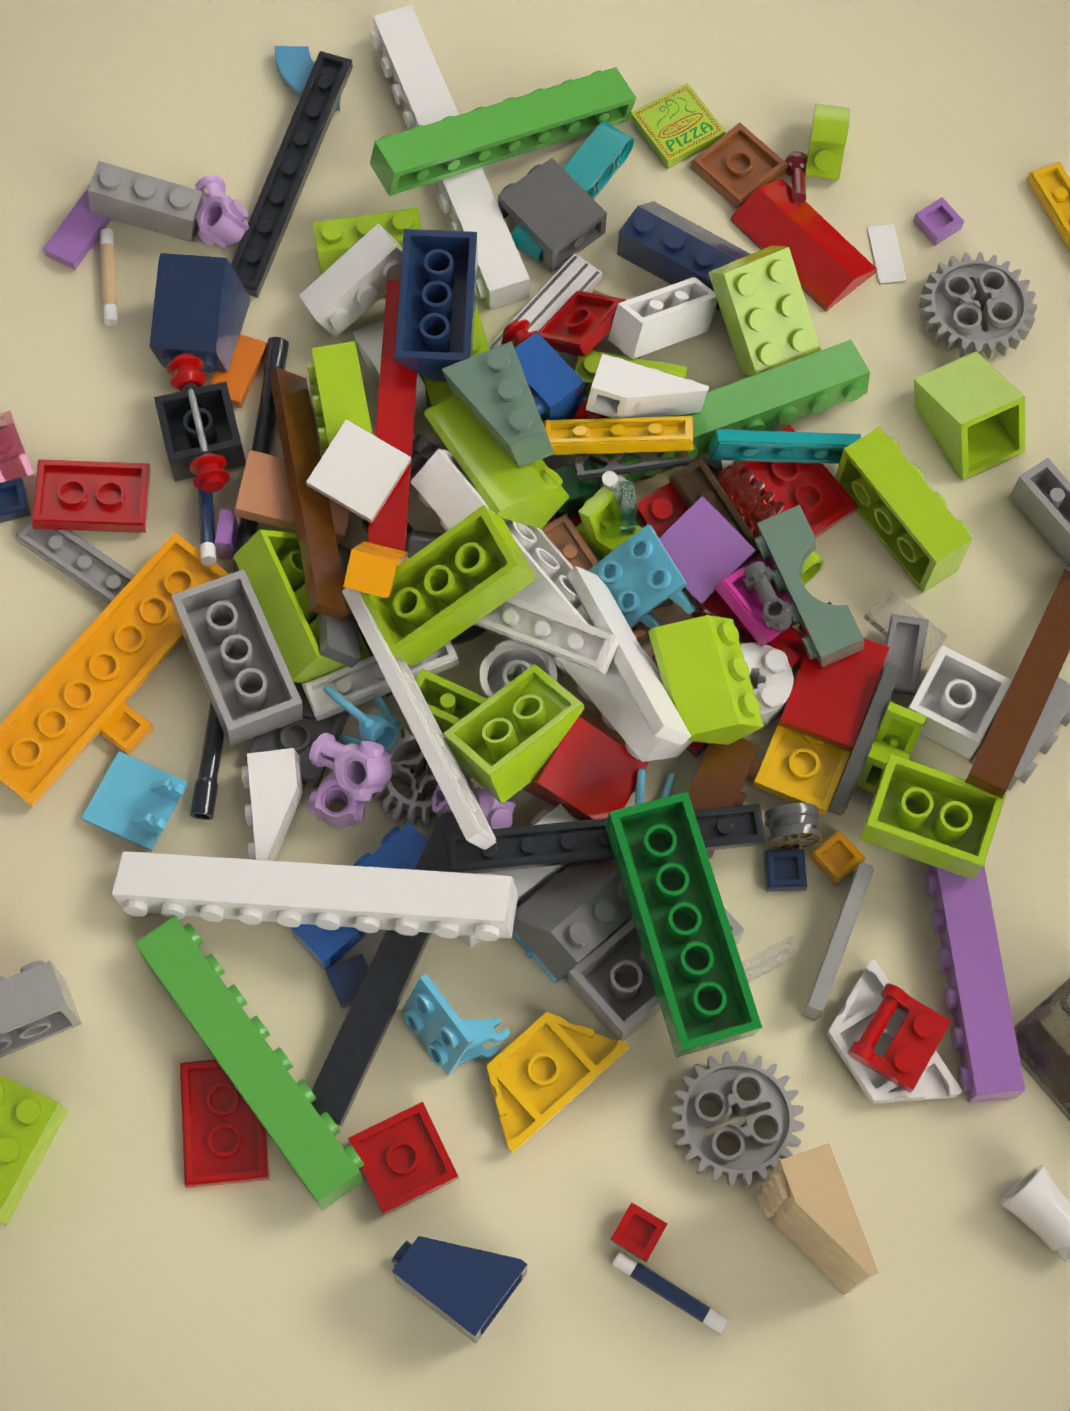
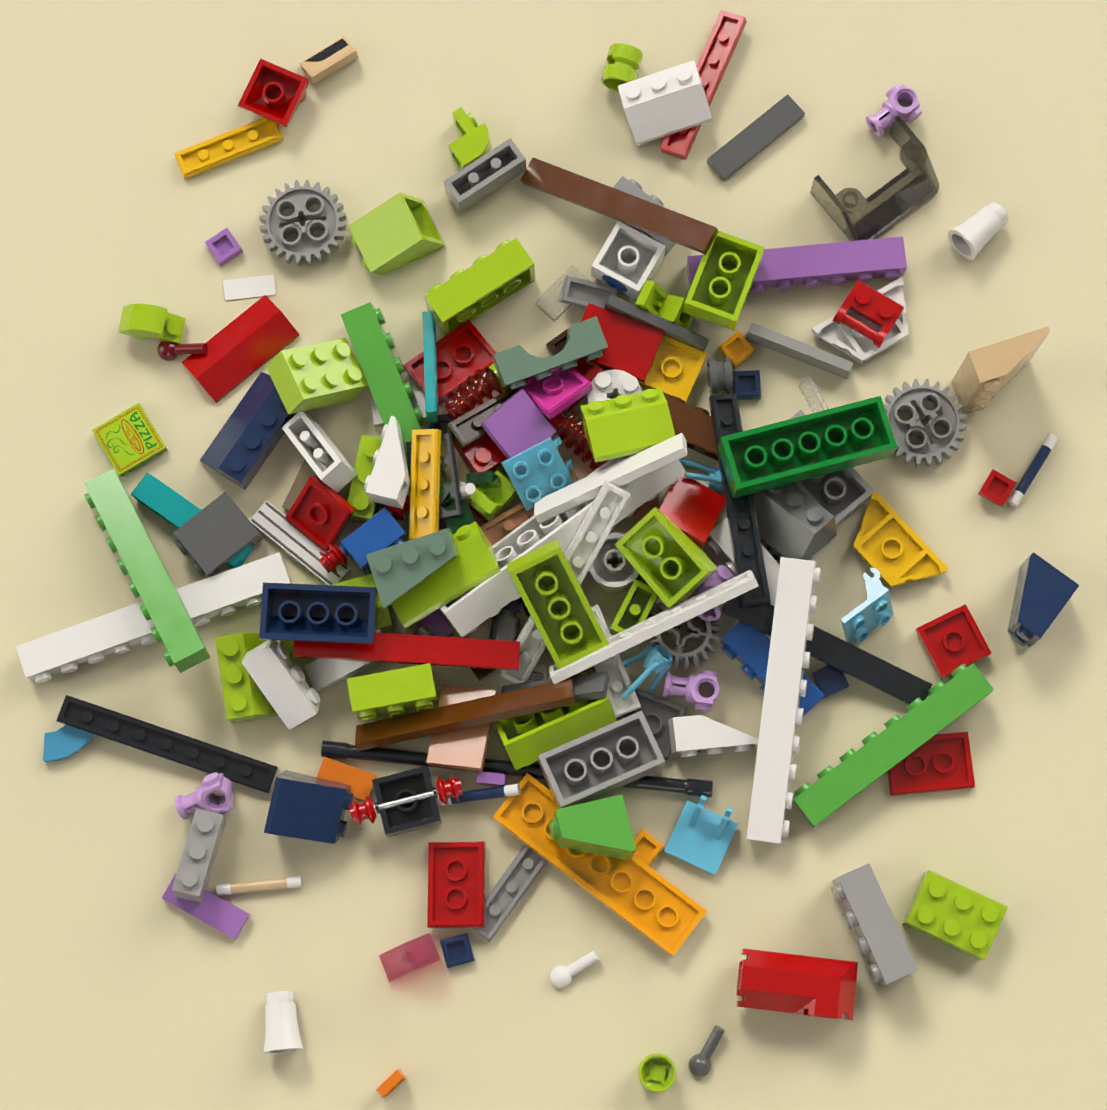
camera: 85 degrees left, 10 degrees up
(142, 647) = (595, 828): none -> bright green slope
(356, 767) = (687, 671): lavender connector -> none
(358, 471) = (459, 672): white tile -> none
(373, 568) = (542, 657): light orange panel -> none
(738, 165) = (168, 394): dark orange tile -> none
(776, 612) = (575, 375): dark grey bar -> none

